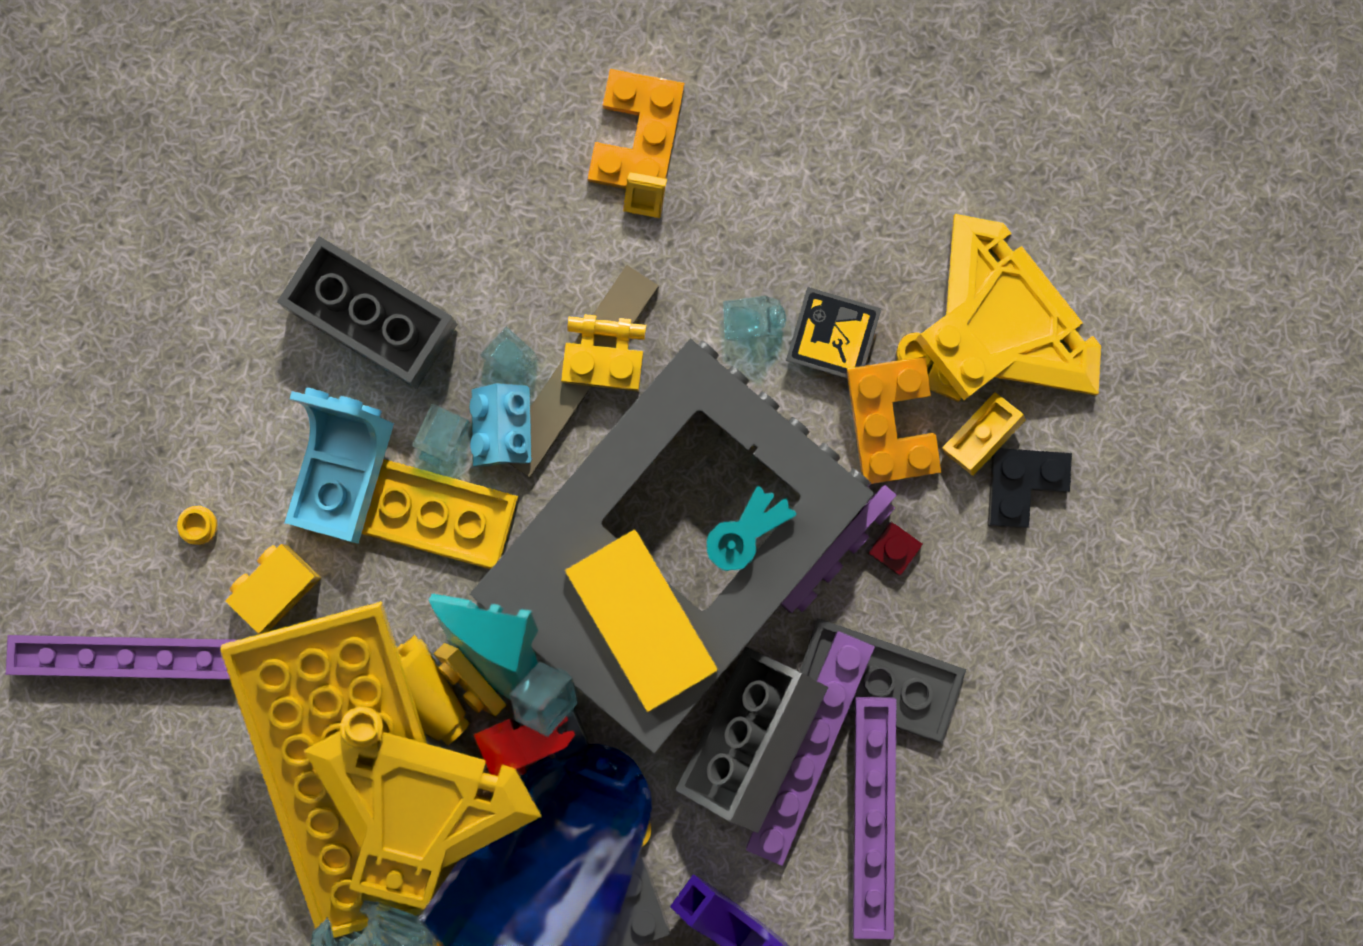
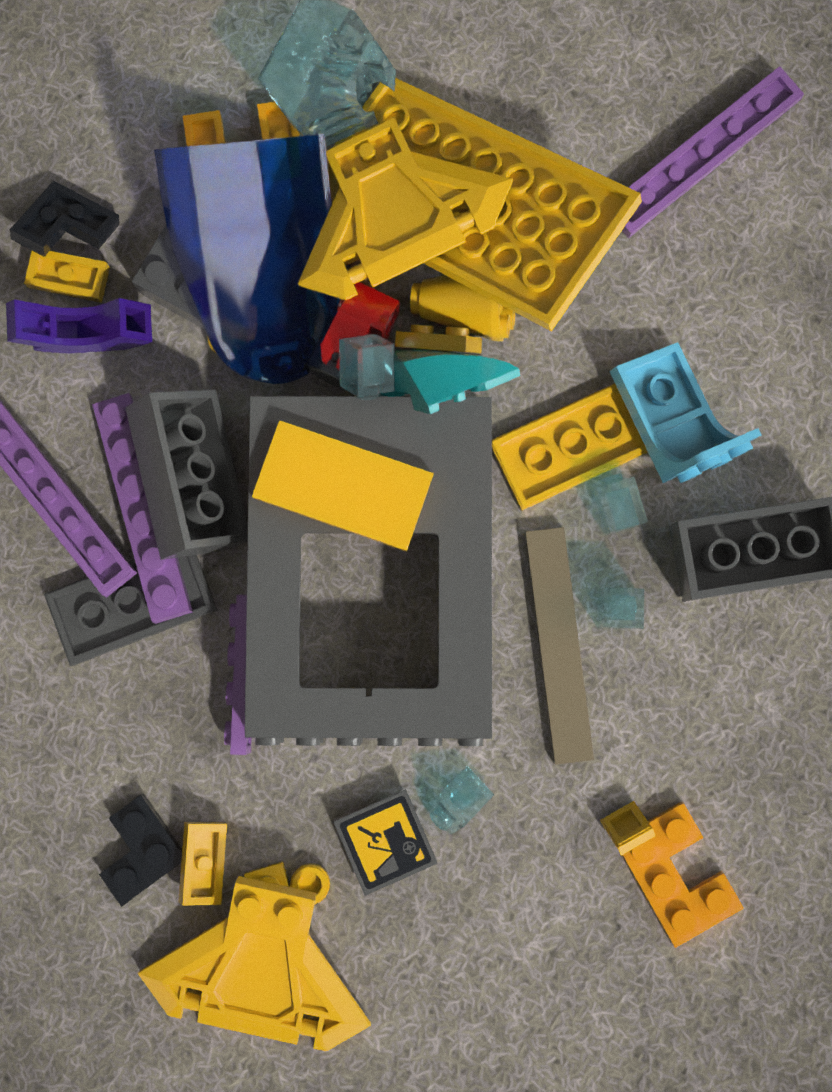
camera: 145 degrees right, 0 degrees up
(197, 525) = (740, 288): yellow plate -> none
(272, 588) = (643, 287): yellow brick -> none
(361, 727) = (484, 228): yellow plate -> none
(500, 424) = (581, 551): medium azure bracket -> none
(601, 365) = (543, 663): yellow plate -> none
(734, 543) = (320, 603): teal piece -> none
(880, 451) = (274, 781): light orange plate -> none
(895, 548) = (200, 713): dark red plate -> none

